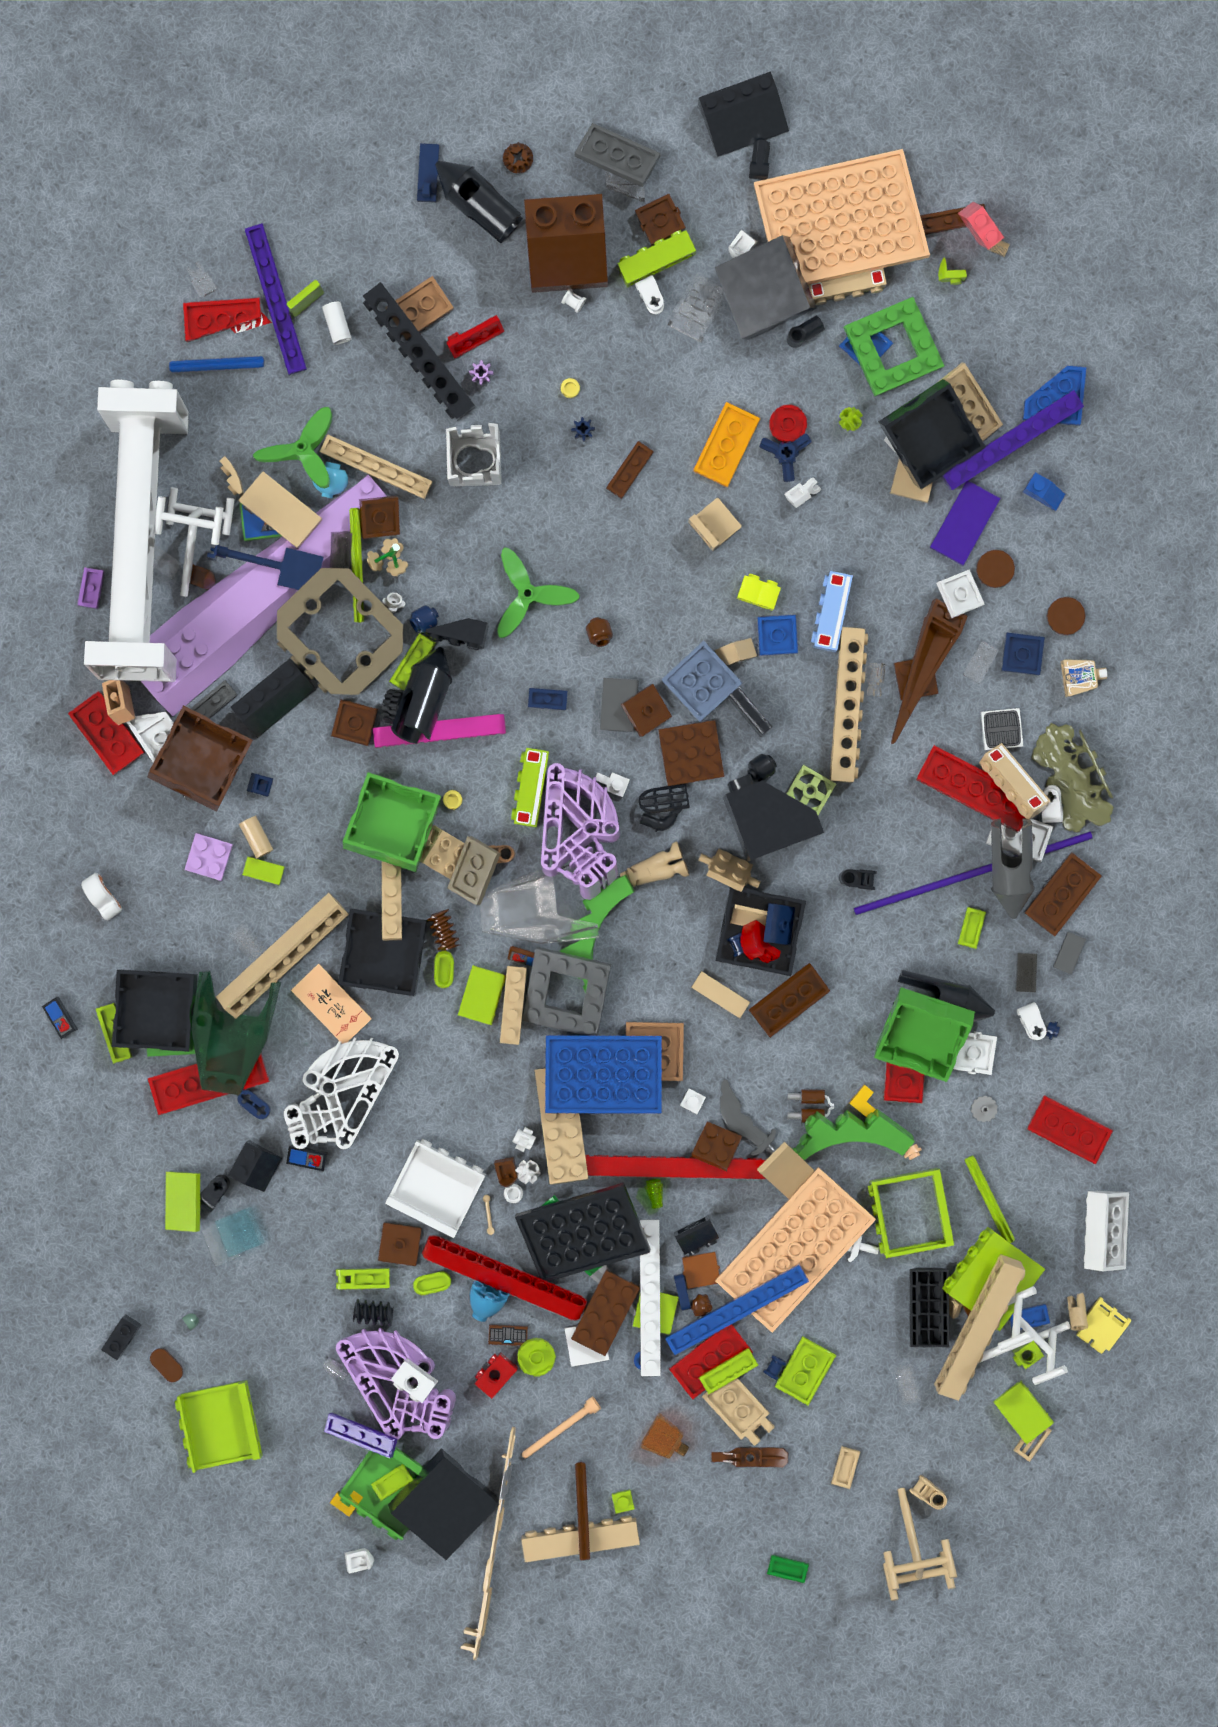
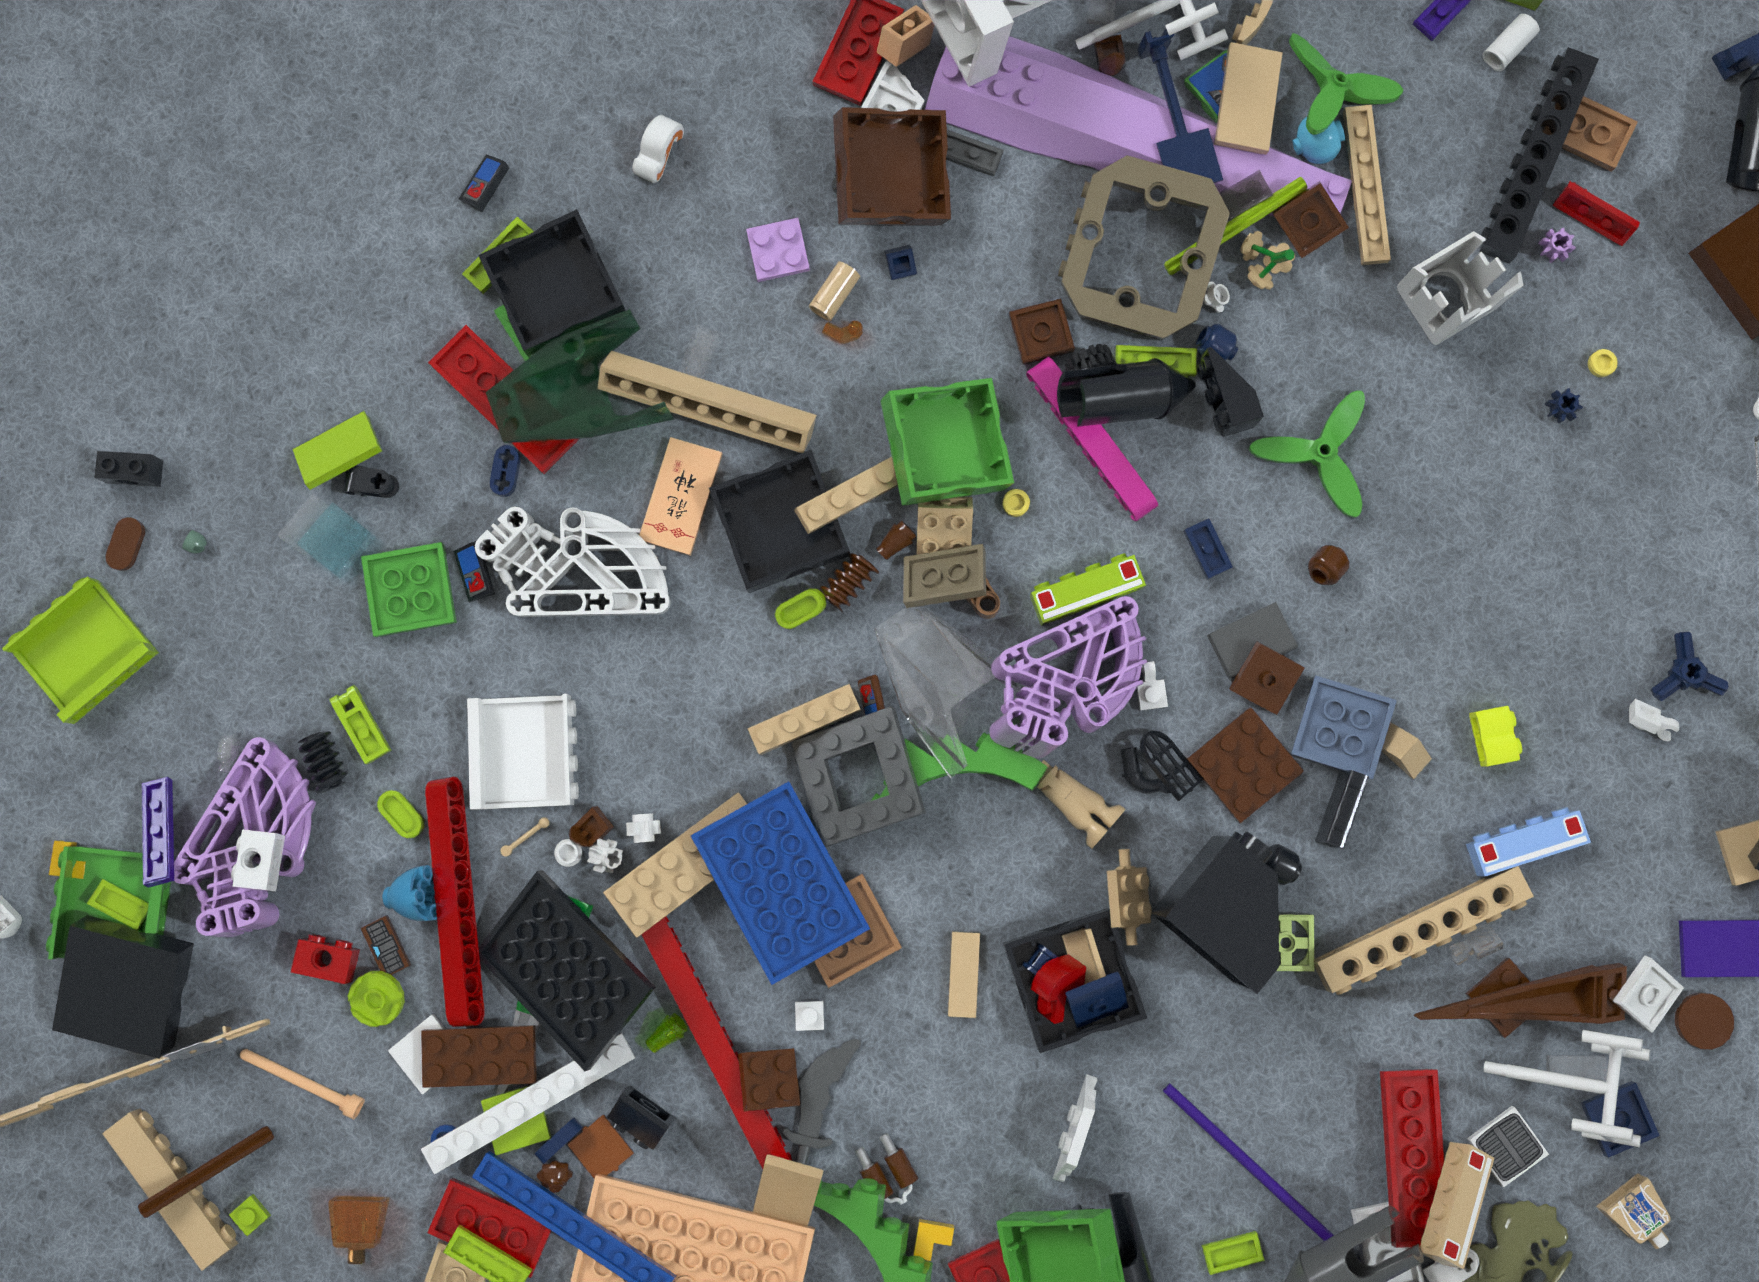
camera: 60 degrees right, 5 degrees down
(255, 1166) = (428, 513): black slope -> none
(263, 870) = (798, 324): lime tile -> none
(273, 698) = (1015, 217): black slope -> none
(286, 846) = (843, 335): none -> clear orange arm
(295, 1204) = (408, 589): none -> bright green plate
(399, 1244) = (428, 746): reddish brown plate -> none
(434, 886) = (896, 539): none -> reddish brown cone
(482, 995) = (794, 674): lime piece -> none
(573, 300) = (1712, 306): white bush -> none
(629, 470) = (1547, 491): reddish brown tile -> none
(714, 524) = (1545, 632): tan bracket -> none
(726, 444) = (1651, 592): light orange tile -> none
(777, 635) = (1455, 790): blue tile -> none
(789, 1000) = (1007, 1068): reddish brown plate -> none
(790, 428) = (1719, 658): red tile -> none
(842, 974) = (1080, 1118): none -> white wing
(859, 879) = (1213, 1072): black piece -> none
(1018, 672) = (1604, 1043): none -> white piece
(1066, 616) = (1700, 1147): reddish brown tile -> none

